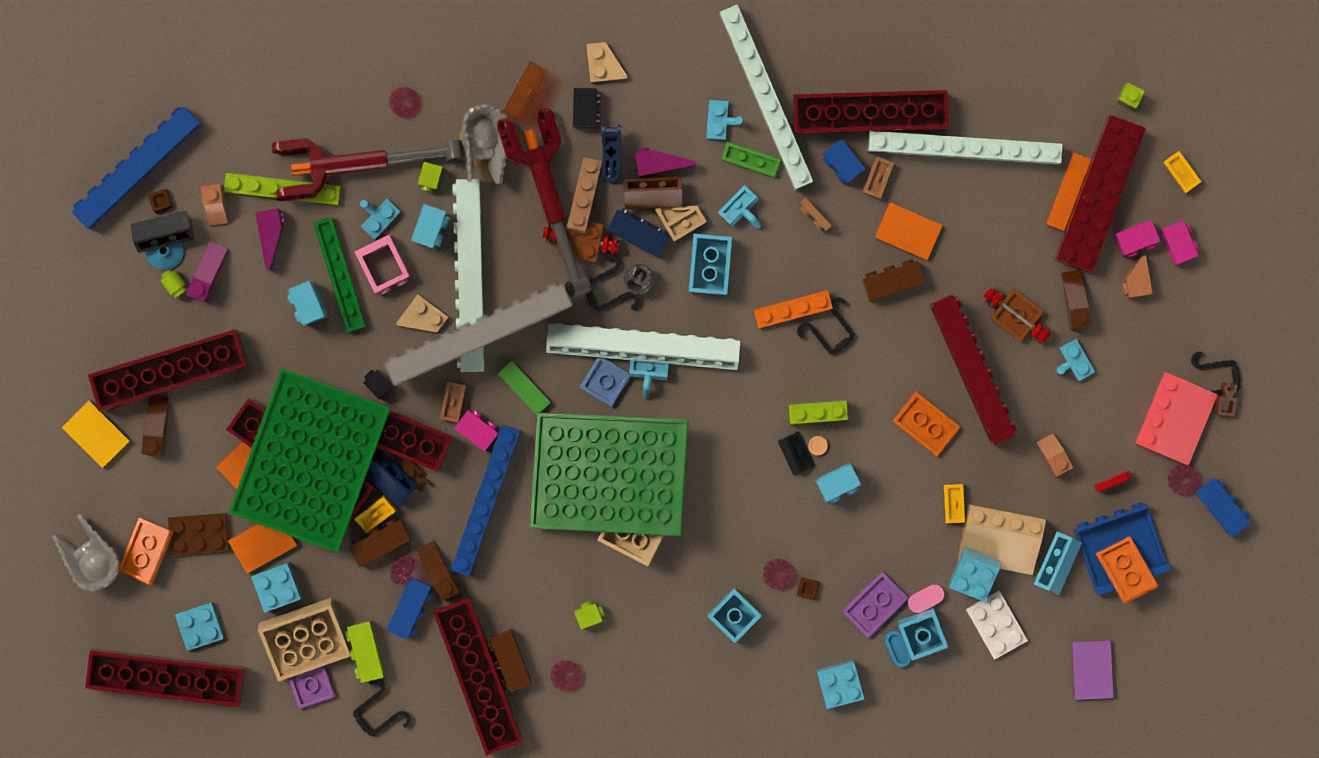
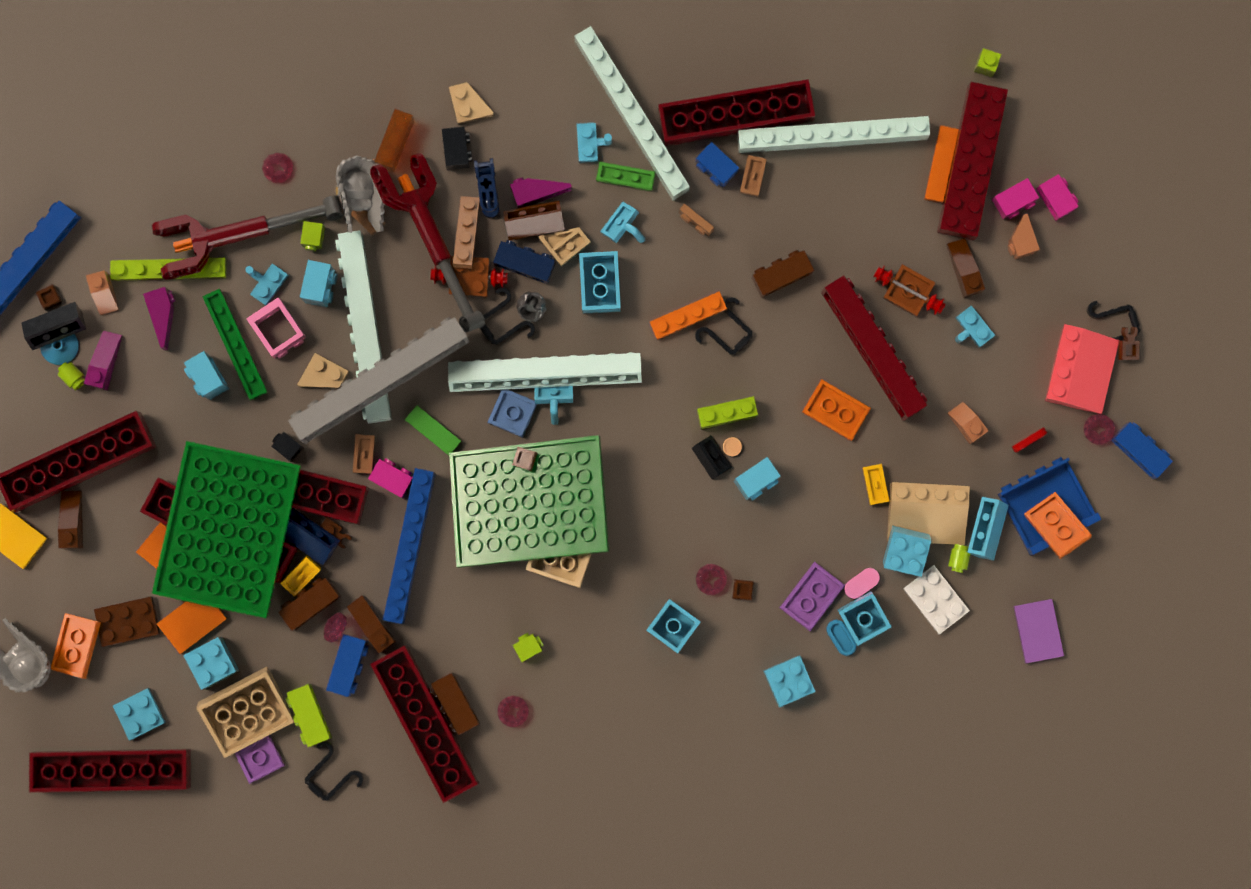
camera: 10 degrees left, 5 degrees down
(611, 431) = (524, 458): none -> tile
(908, 231) = (790, 224): orange tile -> none
(1025, 588) = (959, 558): none -> lime brick
(1181, 172) = (1049, 129): yellow plate -> none

